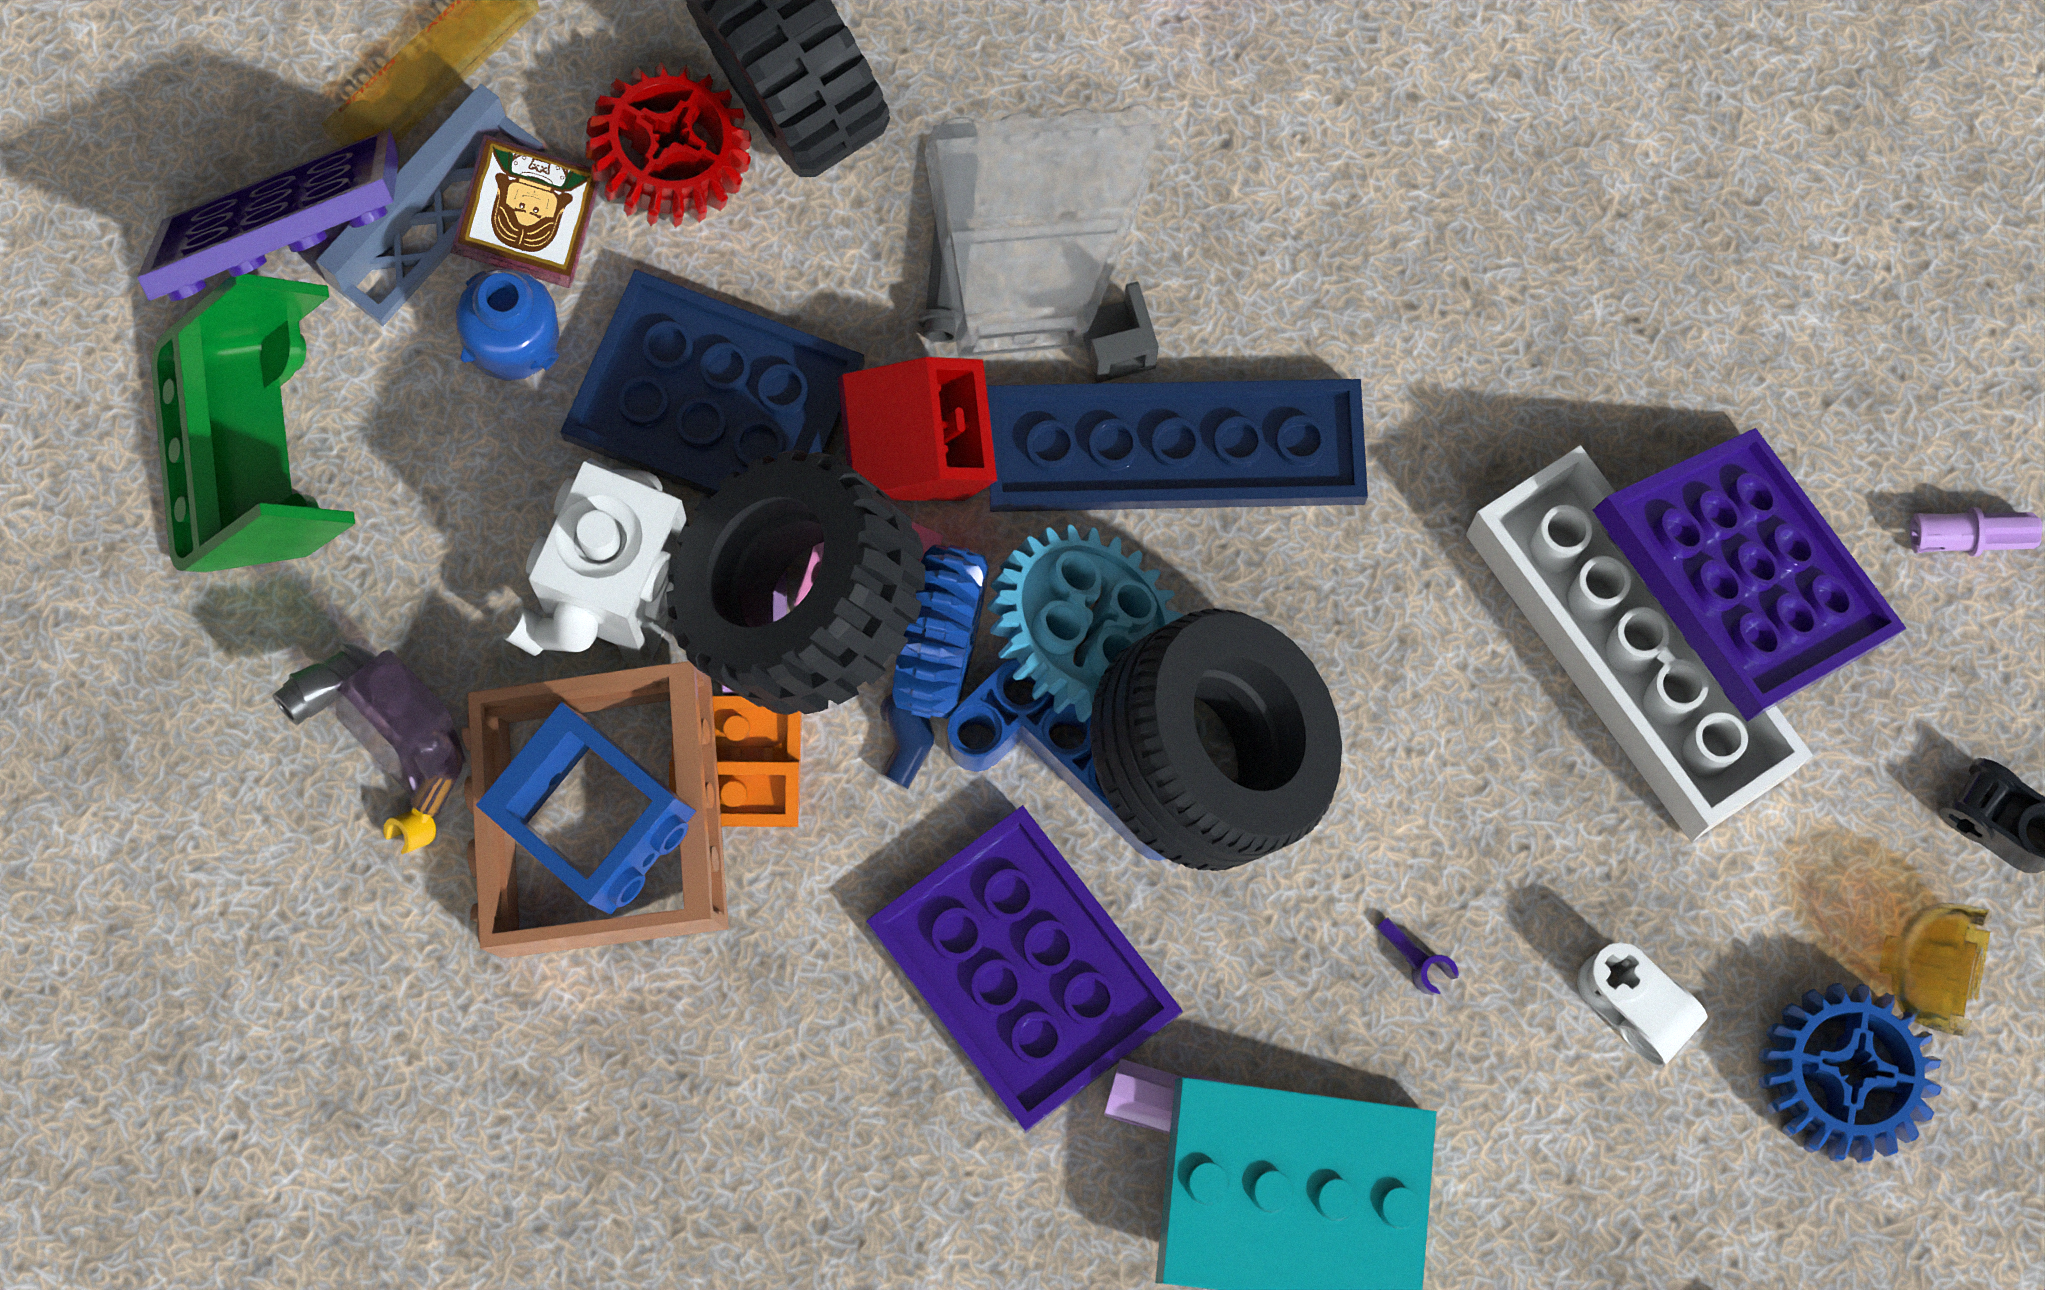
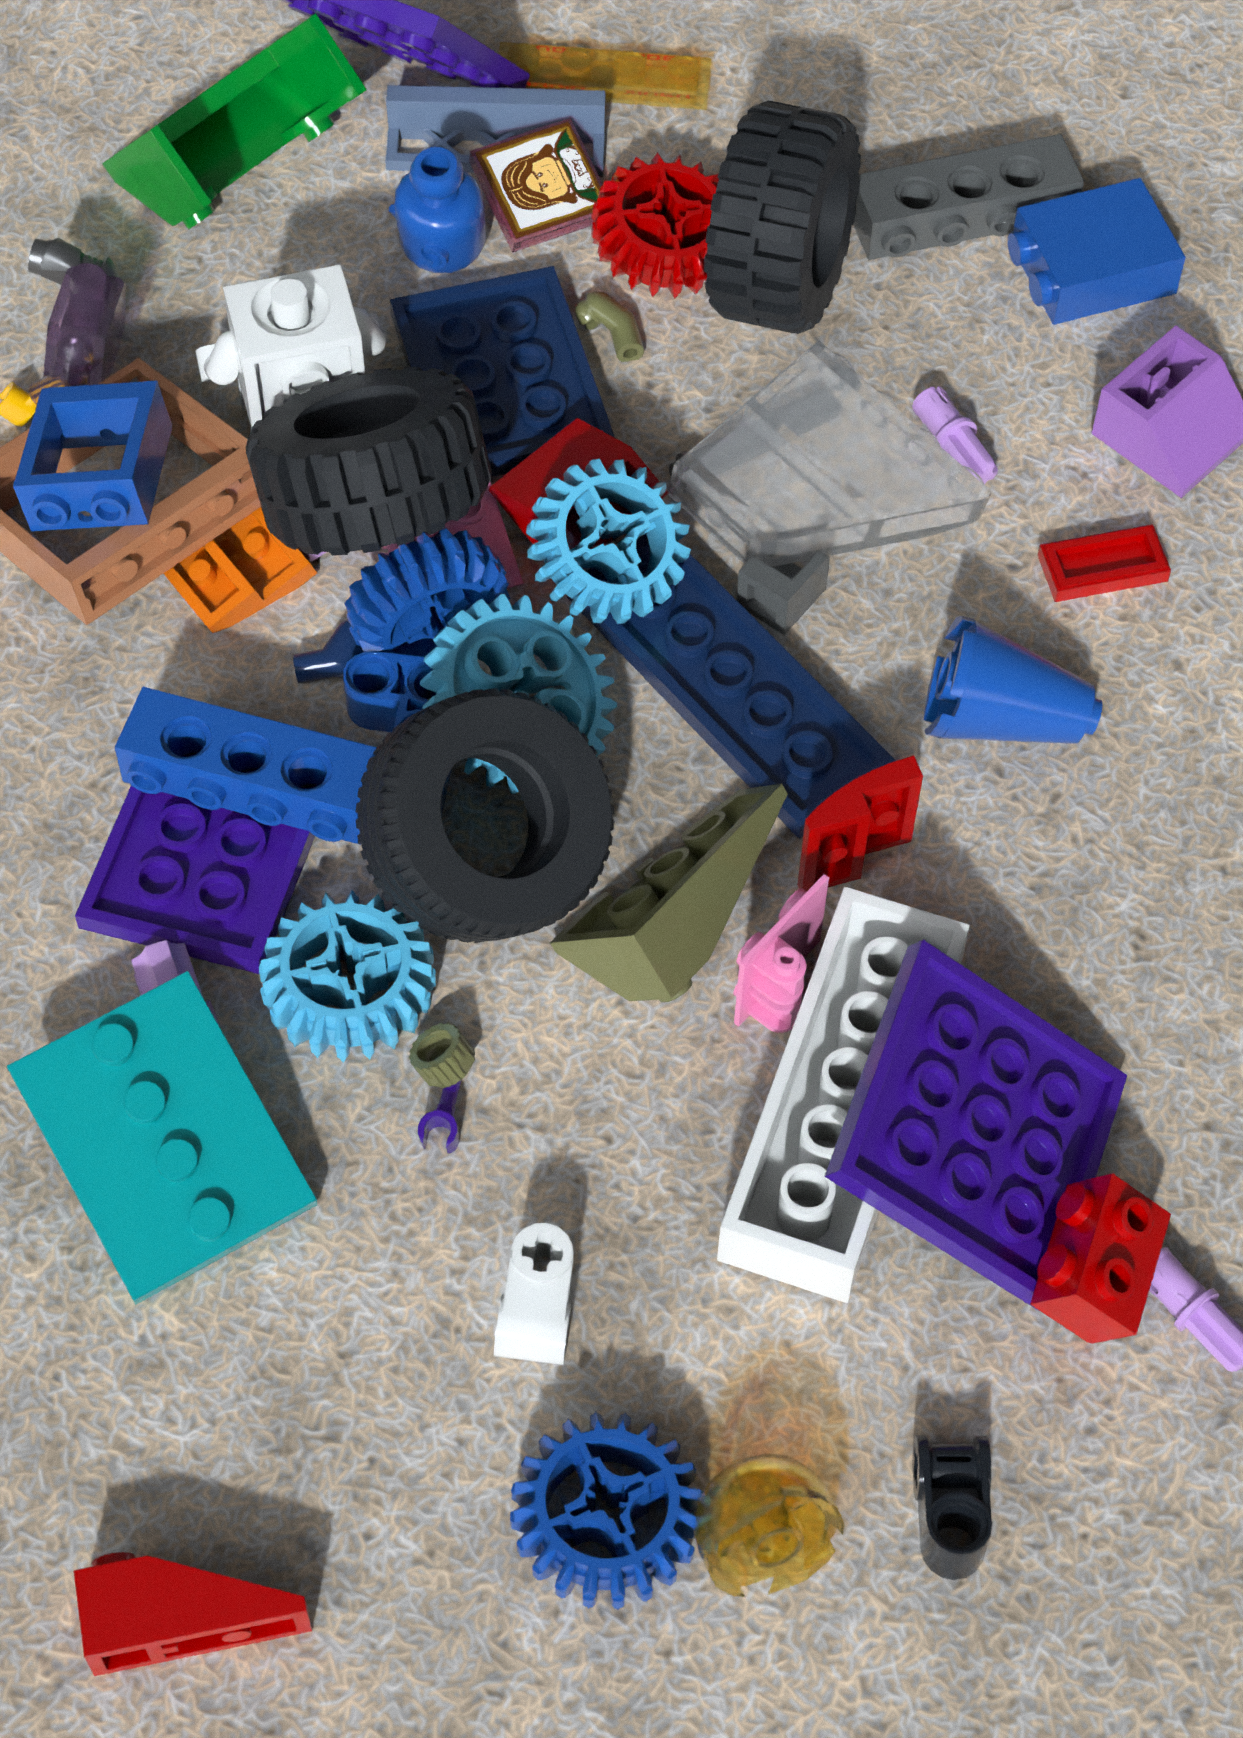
camera: 55 degrees right, 15 degrees down
(727, 258) = (619, 320): none -> olive arm
(992, 458) = (590, 496): none -> medium azure gear
(1070, 818) = (230, 741): none -> blue brick
(1071, 87) = (954, 431): none -> lavender axle
(1273, 954) = (392, 953): none -> medium azure gear
(1280, 74) = (1103, 563): none -> red tile
(1360, 253) = (1005, 692): none -> blue cone
(1364, 633) = (672, 918): none -> olive wedge
(1389, 918) = (442, 1055): none -> olive axle
(1415, 457) = (858, 820): none -> red slope
(1502, 624) = (775, 963): none -> bright pink hinge
(1902, 568) = (1100, 1259): none -> red brick

